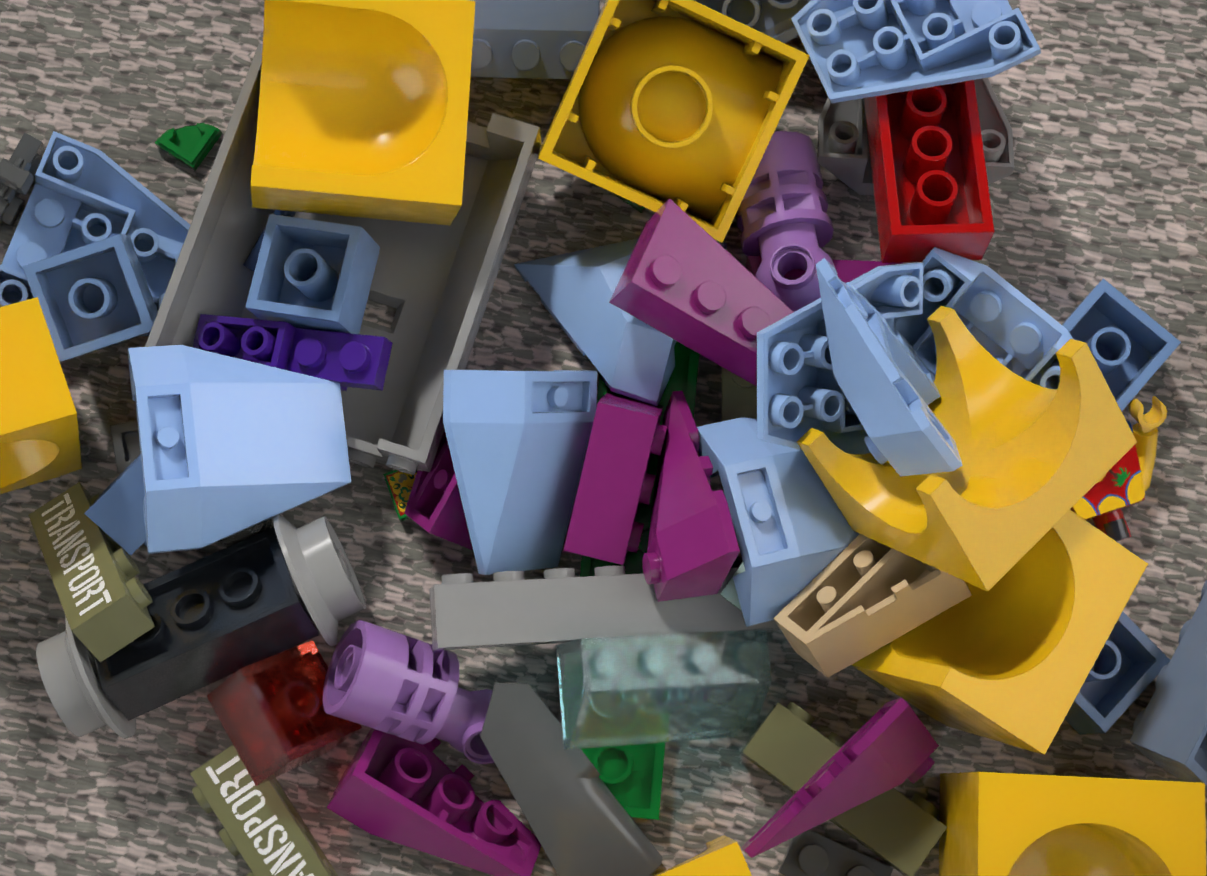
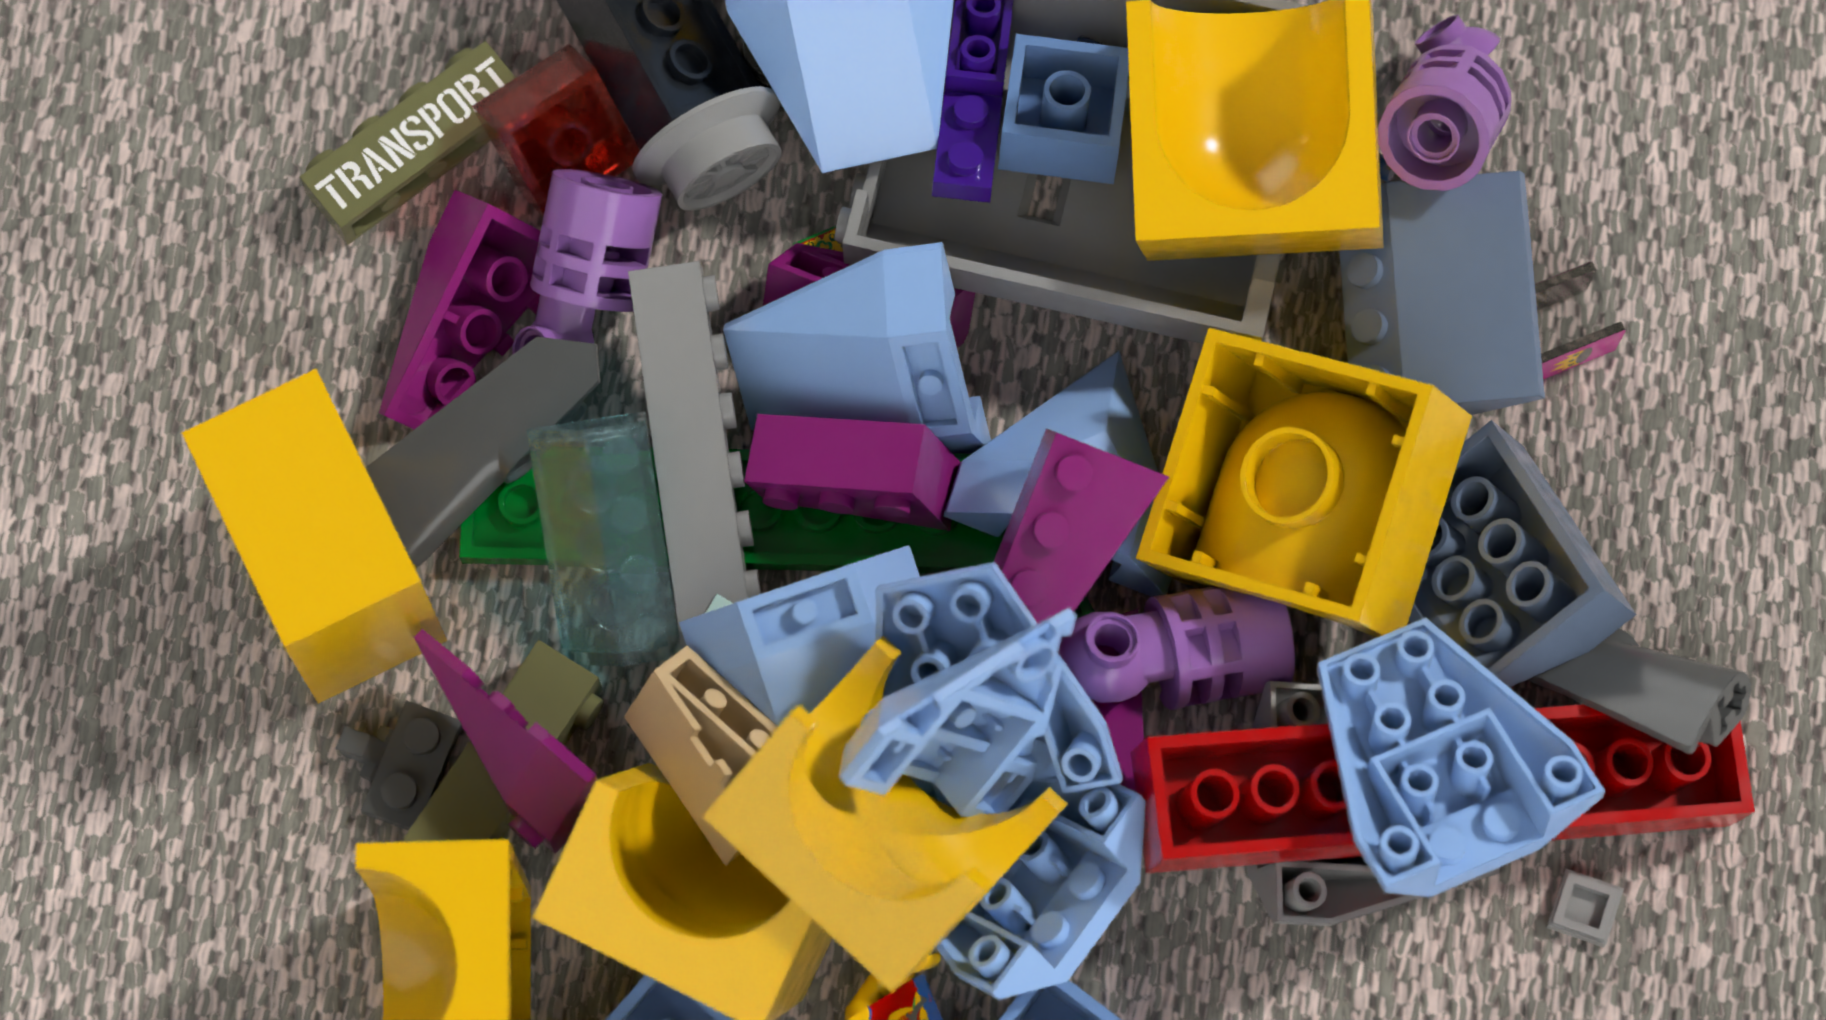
camera: 85 degrees right, 5 degrees down
(690, 524) = (787, 536): magenta wedge -> none

